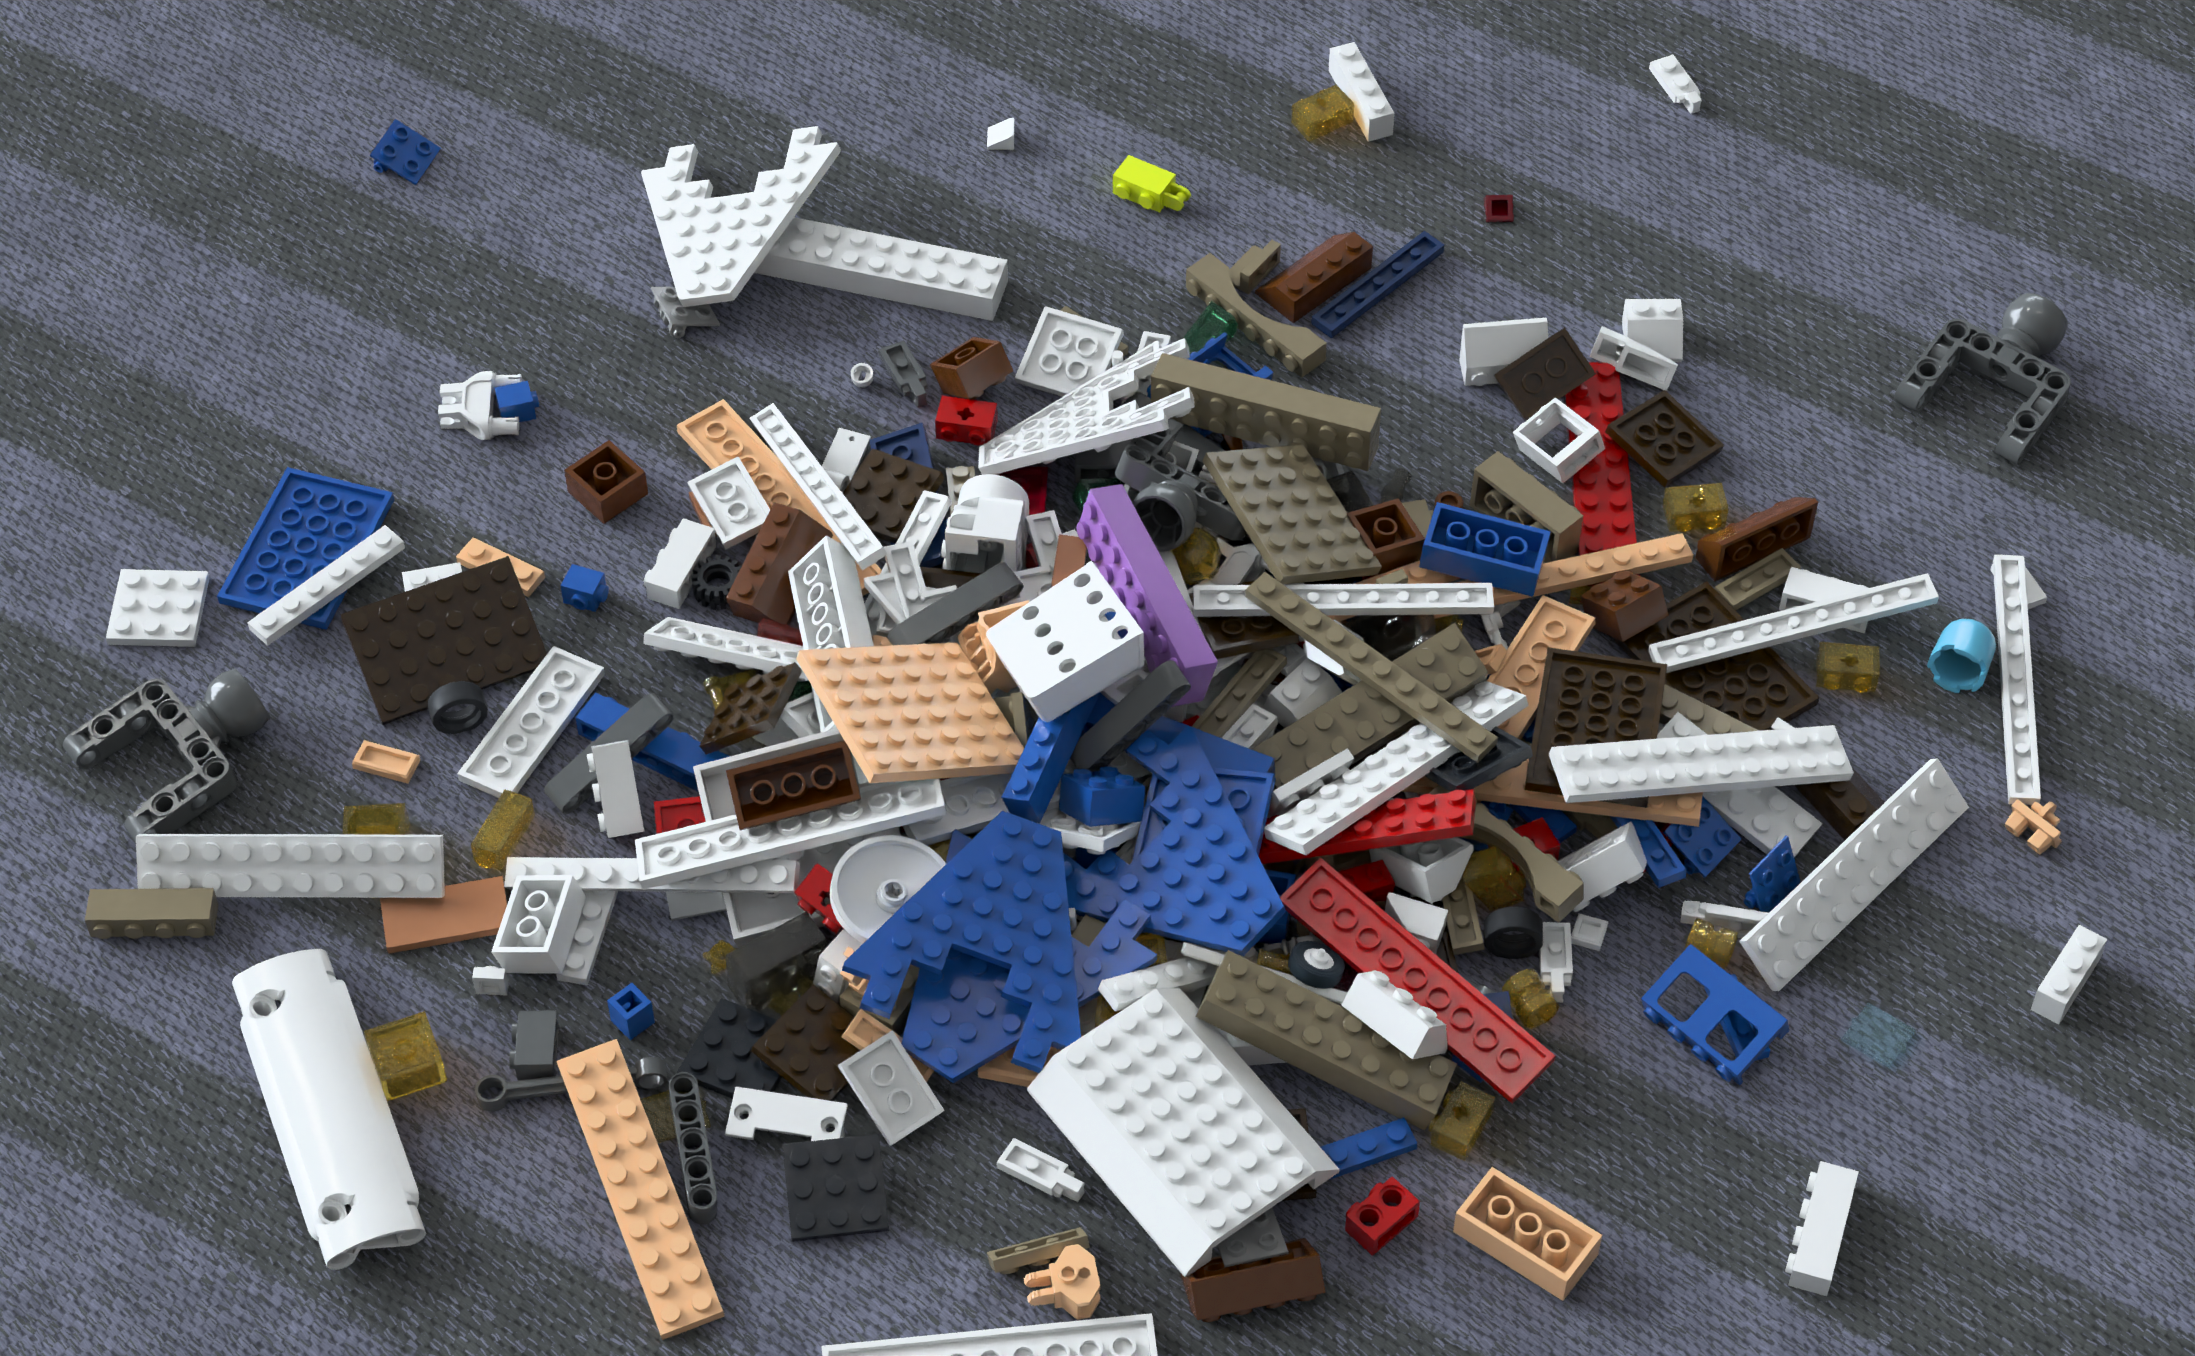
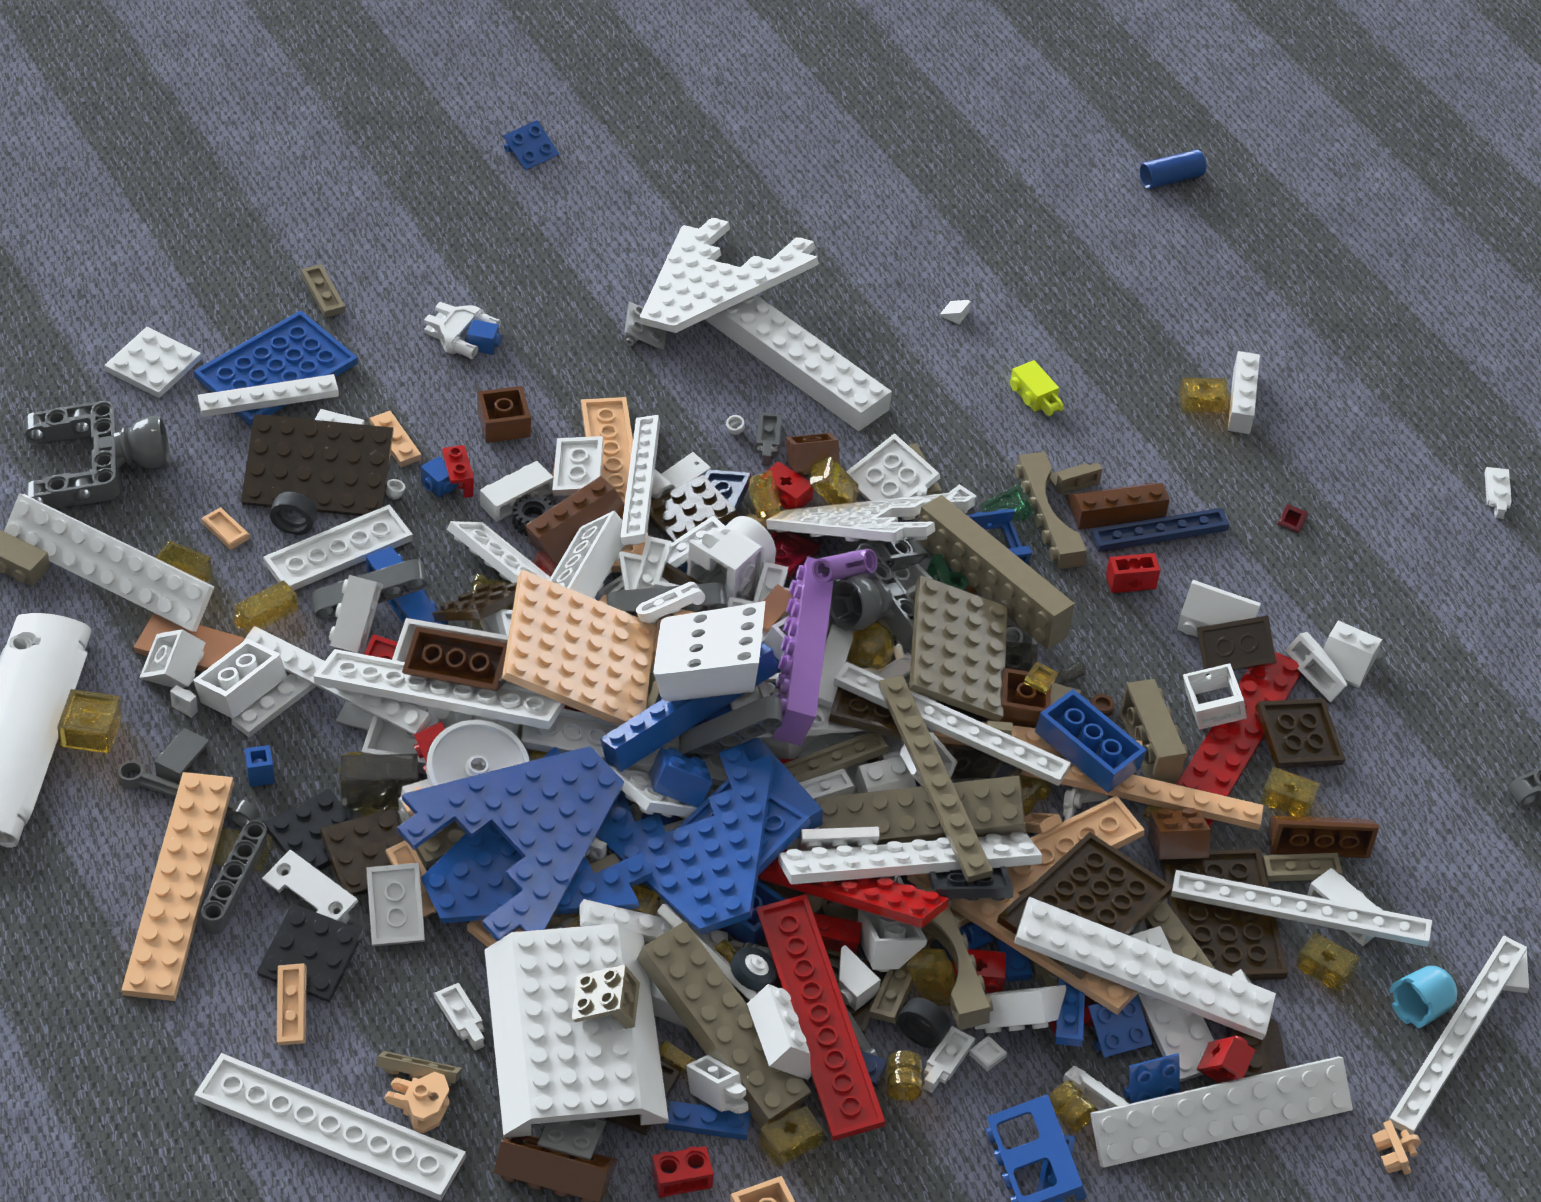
camera: 25 degrees right, 5 degrees down
(293, 432) = (323, 290): none -> dark tan plate
(445, 940) = (173, 659): none -> white slope
(546, 624) = (395, 489): none -> white hinge
(604, 567) = (459, 469): none -> red bracket
(858, 1253) = (291, 1004): none -> light nougat plate
(955, 439) = (764, 494): none -> clear yellow slope
(967, 610) = (670, 602): none -> white plate
(1018, 392) = (833, 482): none -> clear yellow brick
(1136, 479) = (844, 565): none -> medium lavender piece
(1204, 1072) = (607, 993): none -> dark tan bracket
(1206, 441) = (940, 572): none -> clear green plate
(1301, 1099) = (675, 1055): none -> clear yellow beam
(1360, 1106) = (717, 1085): none -> white hinge
(1387, 345) = (1133, 573): none -> red brick
(1394, 505) = (1041, 677): none -> clear yellow plate
(1831, 817) = (1226, 1059): none -> red brick

